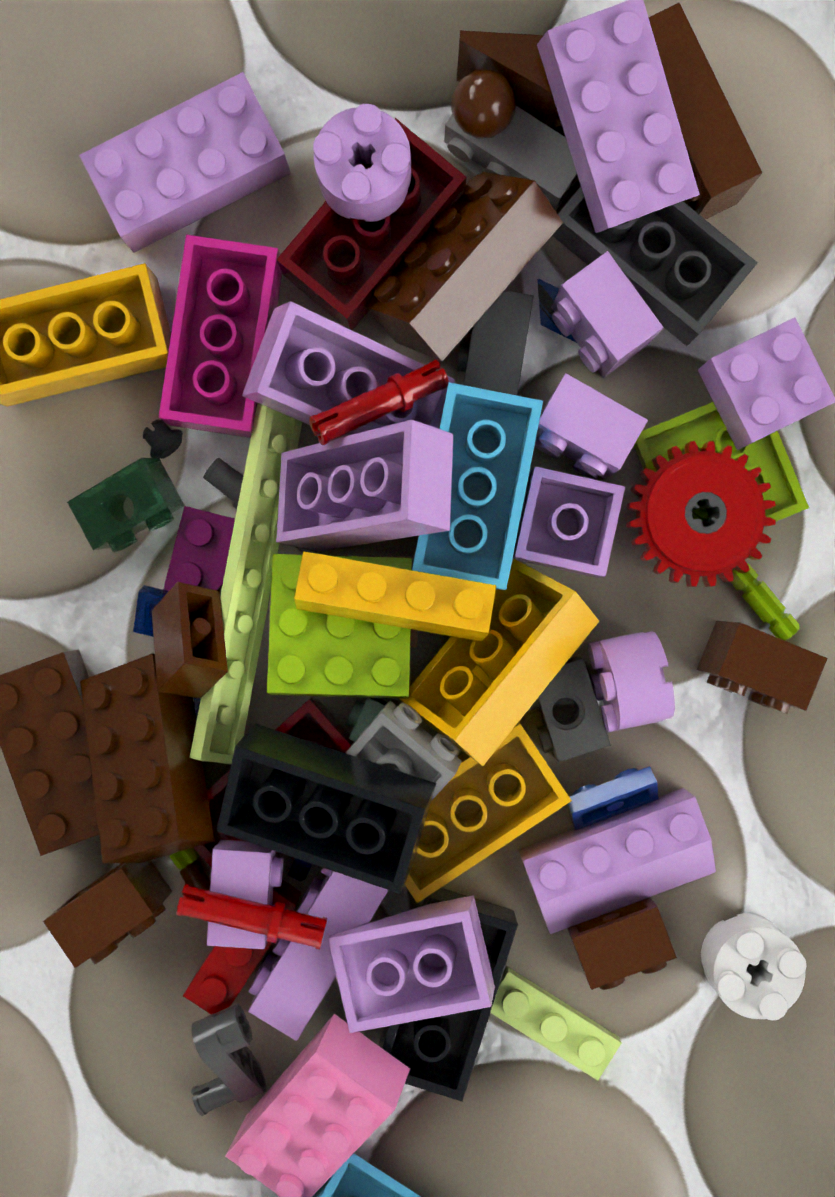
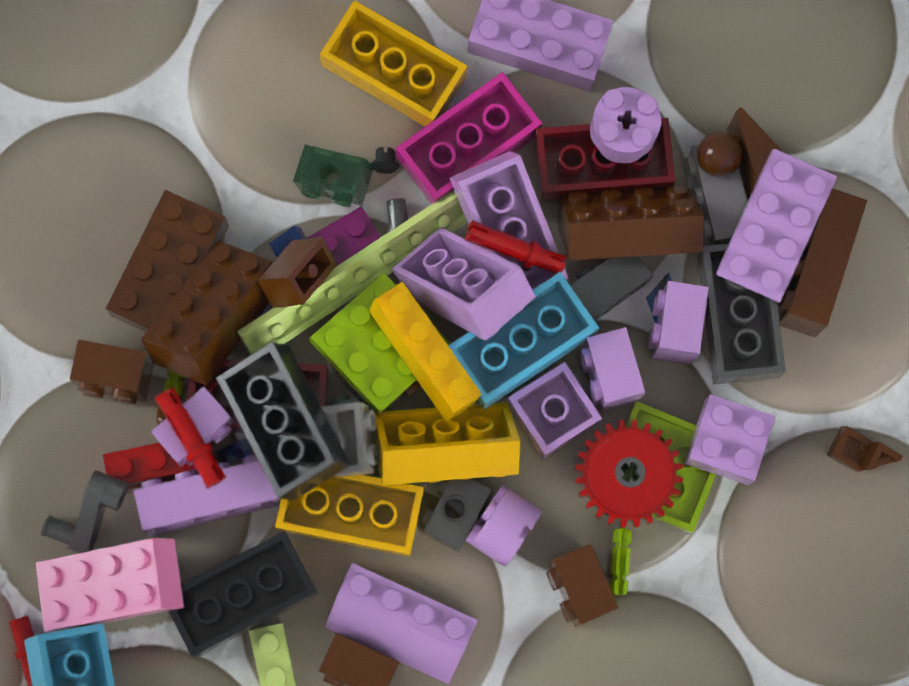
camera: 35 degrees right, 10 degrees down
(413, 966) = (243, 549): lavender slope -> none
(627, 791) = (432, 582): blue plate -> none

